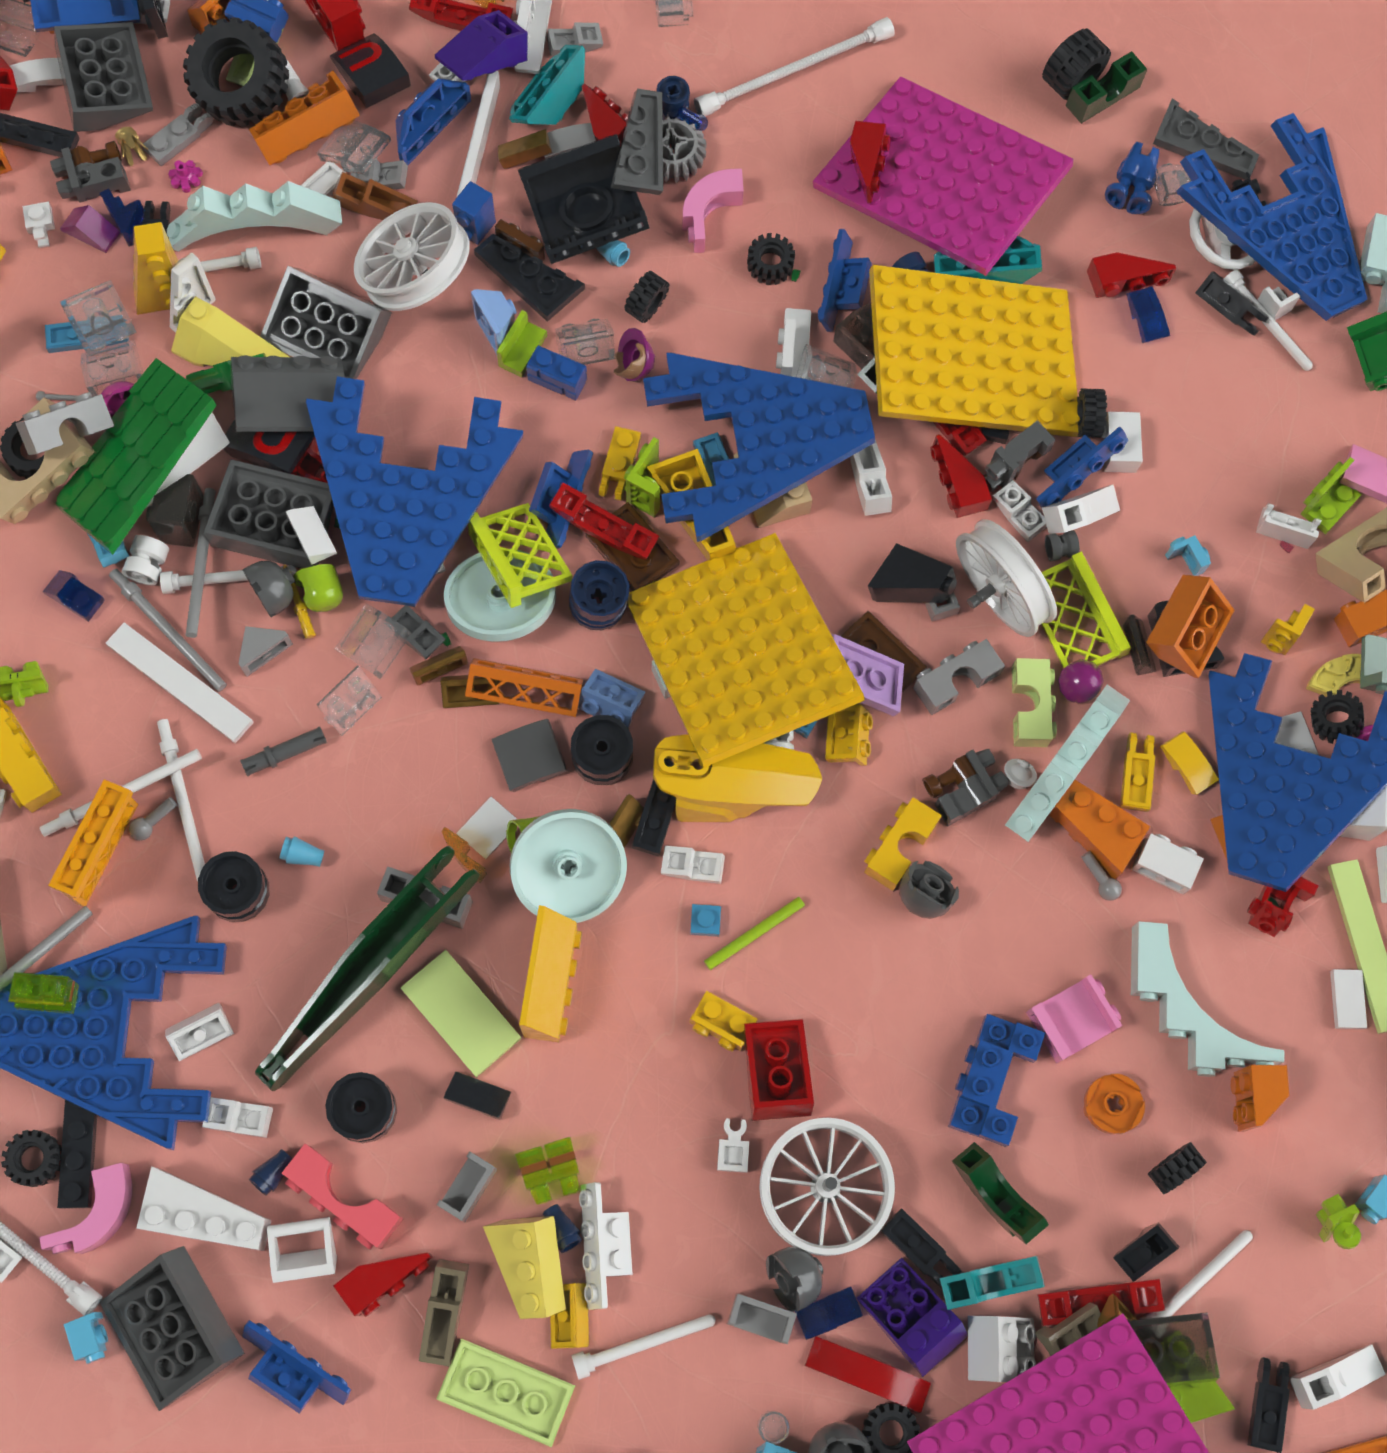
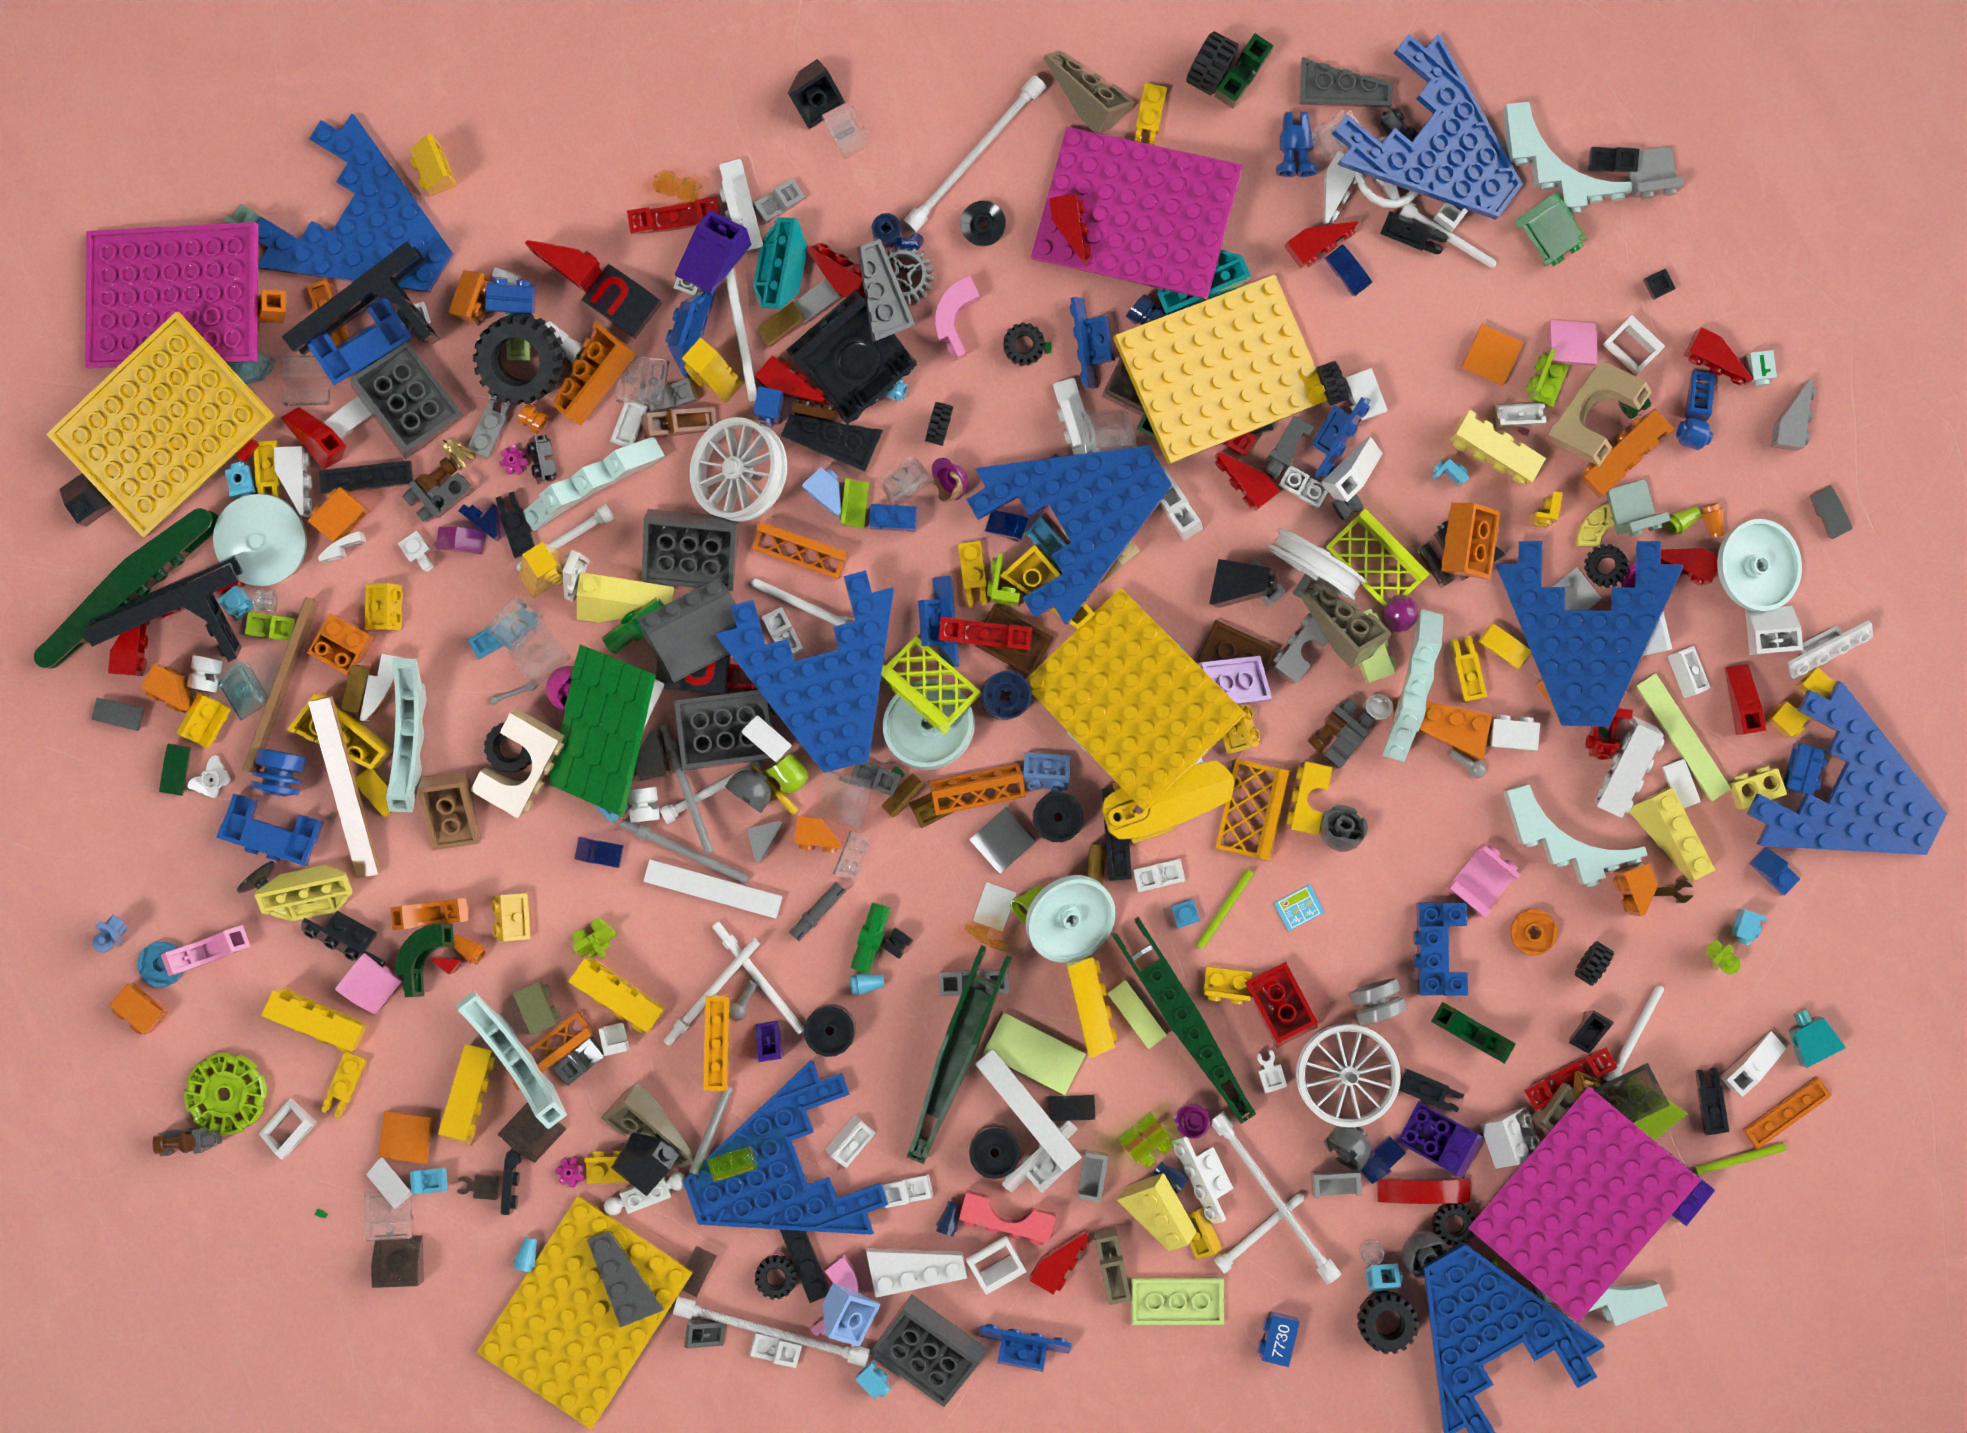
camera: 15 degrees left, 15 degrees up
(41, 431) = (526, 743): light grey arch -> none
(90, 1234) = (848, 1314): none -> light blue slope
(158, 876) = (769, 1041): none -> dark purple slope
(216, 173) = (539, 450): none -> hinge
(225, 143) = (533, 419): none -> orange wheel
(316, 659) = (816, 832): none -> orange slope
(330, 803) = (870, 937): none -> green piece
(357, 820) = (897, 943): none -> black wheel
(388, 429) = (781, 629): none -> white slope
(408, 414) = (797, 602): none -> white piece
(416, 1148) = (1039, 1166): none -> white bracket
(423, 1075) = (1028, 1110): none -> white tile
(426, 147) = (710, 369): none -> yellow wedge
(445, 359) = (797, 540): none -> orange fence
(505, 201) = (778, 377): none -> red slope
(601, 1015) = (1136, 1014): none -> yellowish green tile
(615, 1167) = (1192, 1121): none -> magenta hair
(655, 1042) = (1185, 1020): none -> dark green piece
(677, 427) = (1006, 525): none -> clear blue slope
(708, 1423) = (1326, 1268): none -> white hose
(776, 122) = (983, 212): none -> black dish
(842, 967) = (1299, 907): none -> sticker
(854, 840) = (1271, 817): none -> light orange fence
(896, 1110) = (1377, 1001): none -> light grey wheel
(934, 56) = (1093, 101): none -> dark tan wedge
(992, 1282) = (1480, 1100): teal arch -> none
(995, 93) = (1150, 111): none -> yellow hinge
(1013, 666) = (1347, 629): none -> dark tan wedge
(1167, 227) = (1336, 182): none -> white slope
(1250, 545) = (1496, 449): none -> light yellow wedge
(1277, 453) = (1492, 354): none -> orange slope
(1294, 951) = (1629, 767): none -> white wedge
(1300, 1123) = (1673, 891): none -> dark brown bar
(1323, 1050) = (1672, 831): none -> light yellow wedge

